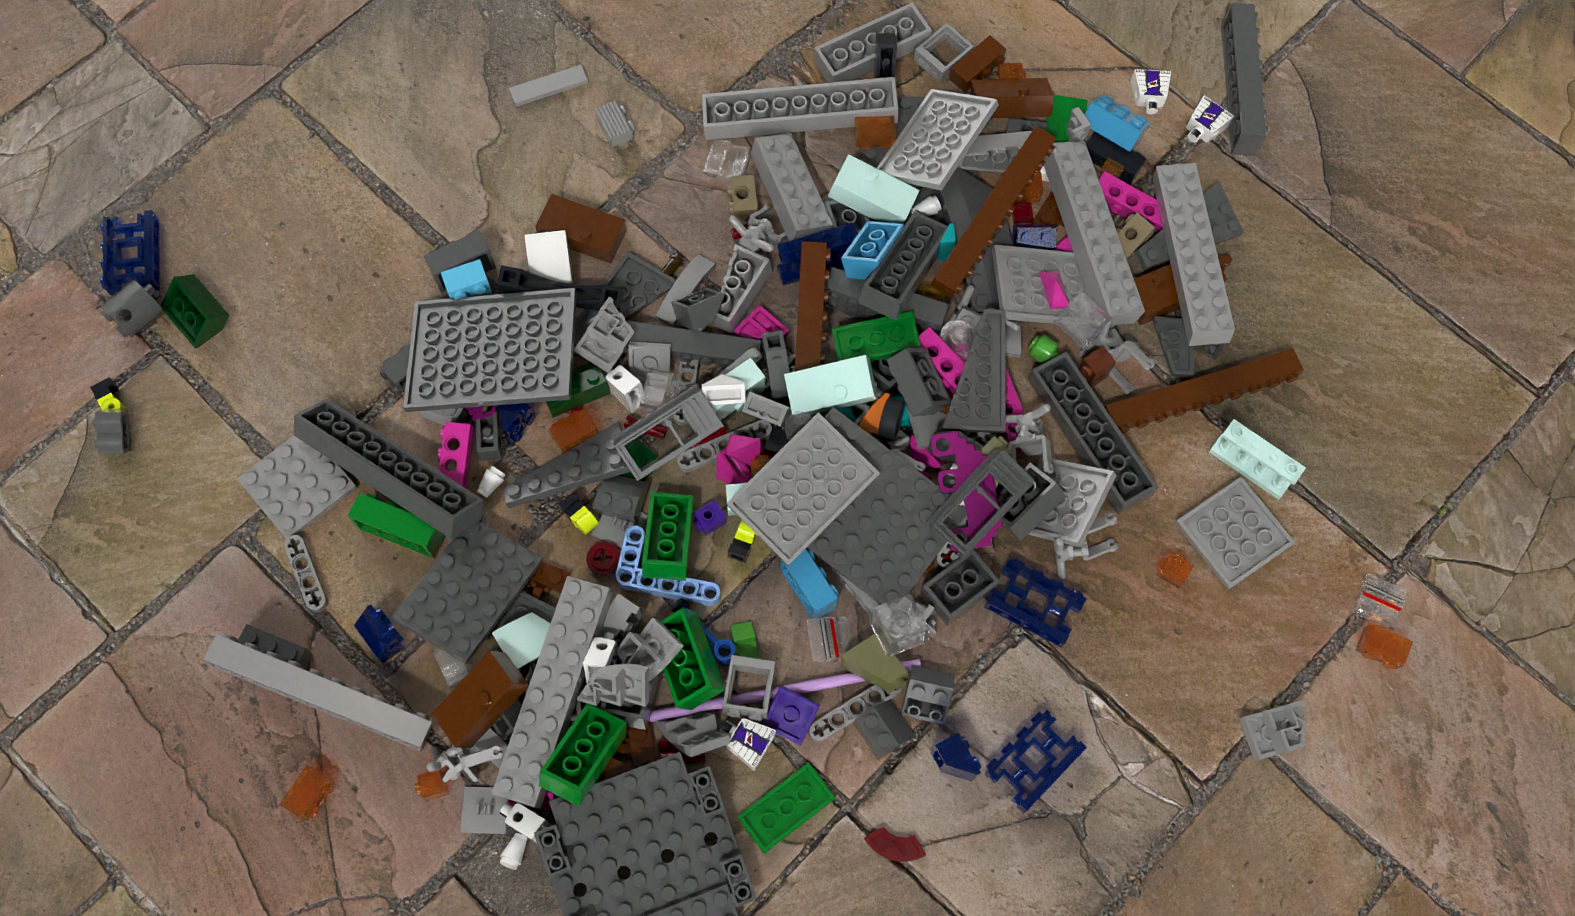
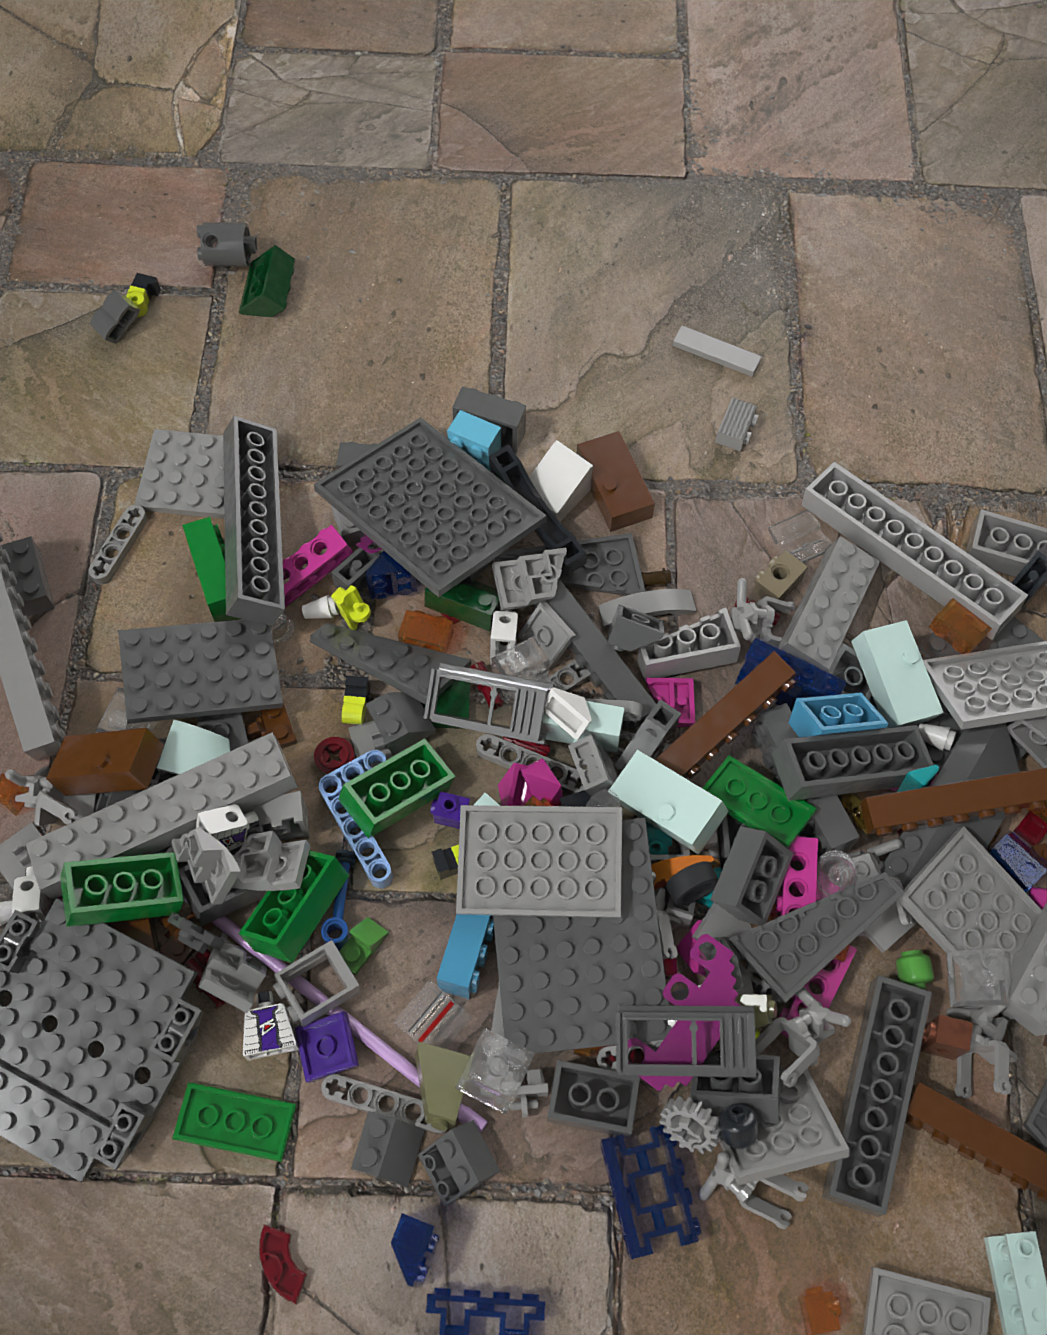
camera: 50 degrees right, 5 degrees down
(147, 252) = (283, 218): clear blue fence -> none
(379, 636) = (103, 645): clear blue slope -> none
(512, 461) = (351, 606): none -> neon yellow hips
(649, 736) = (194, 935): none -> dark grey plate
(1025, 544) = (690, 1124): none -> light grey gear
(1052, 517) = (738, 1127): none -> black head
(1054, 289) = (981, 923): dark pink slope -> none

